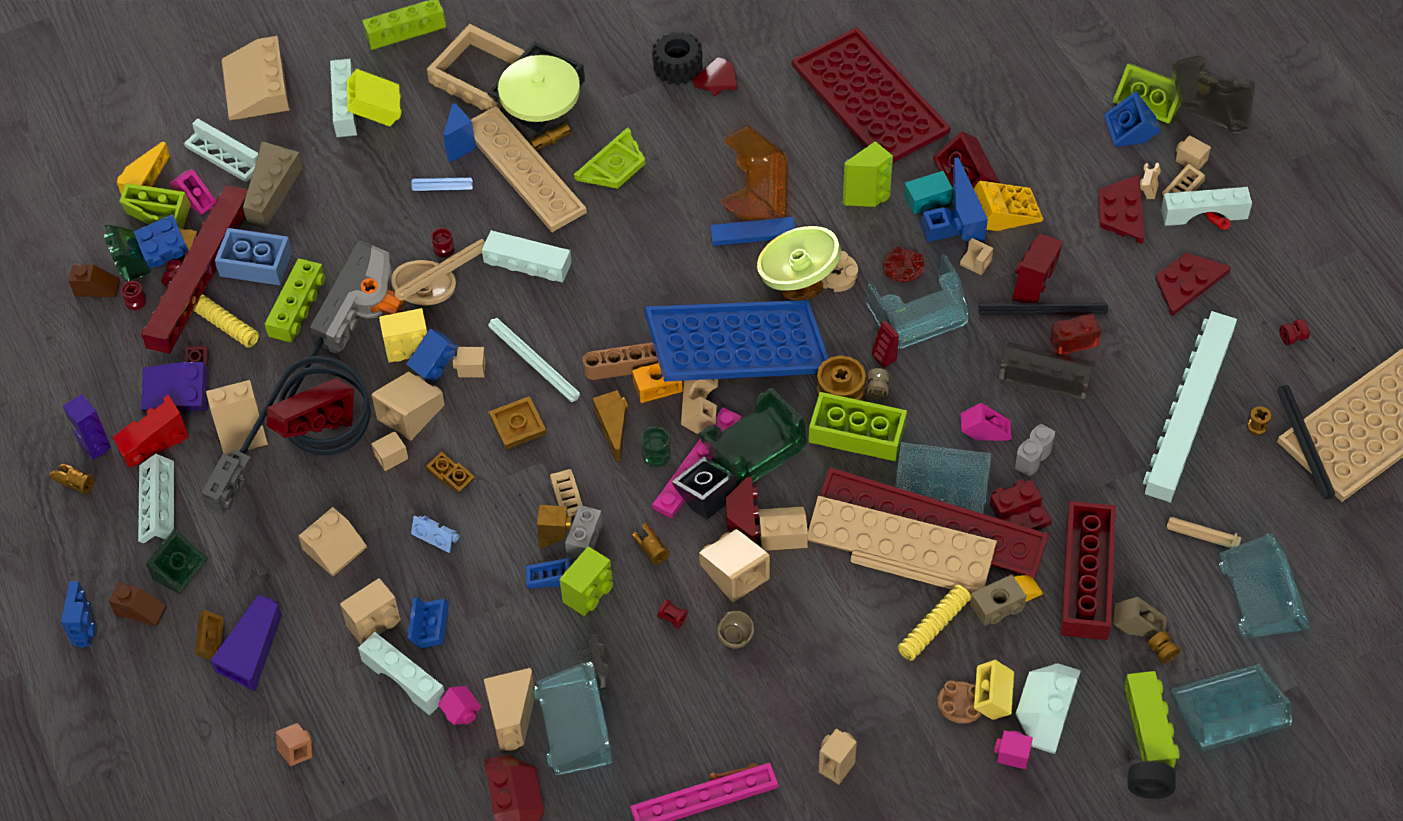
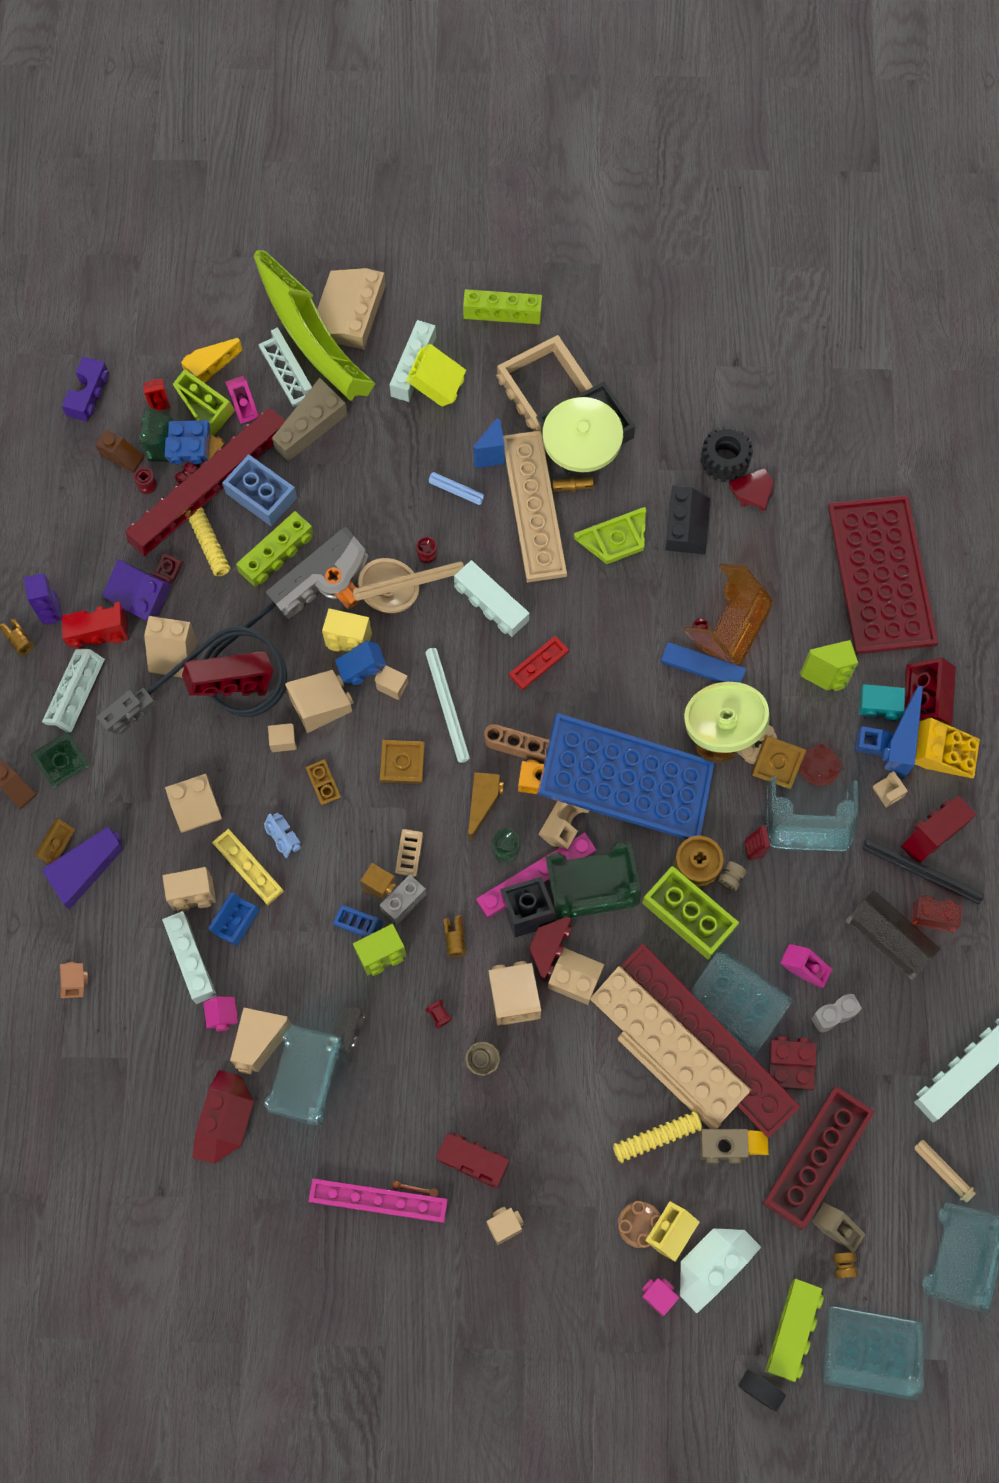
camera: 25 degrees right, 15 degrees up
(32, 257) = (82, 403): none -> dark purple arch
(104, 215) = (156, 394): none -> red slope
(219, 104) = (307, 329): none -> lime slope
(416, 575) = (248, 867): none -> light yellow tile
(600, 290) = (538, 663): none -> red plate
(671, 124) = (687, 520): none -> black slope
(777, 718) = (473, 1160): none -> dark red wedge
(862, 269) = (778, 760): none -> pearl gold plate

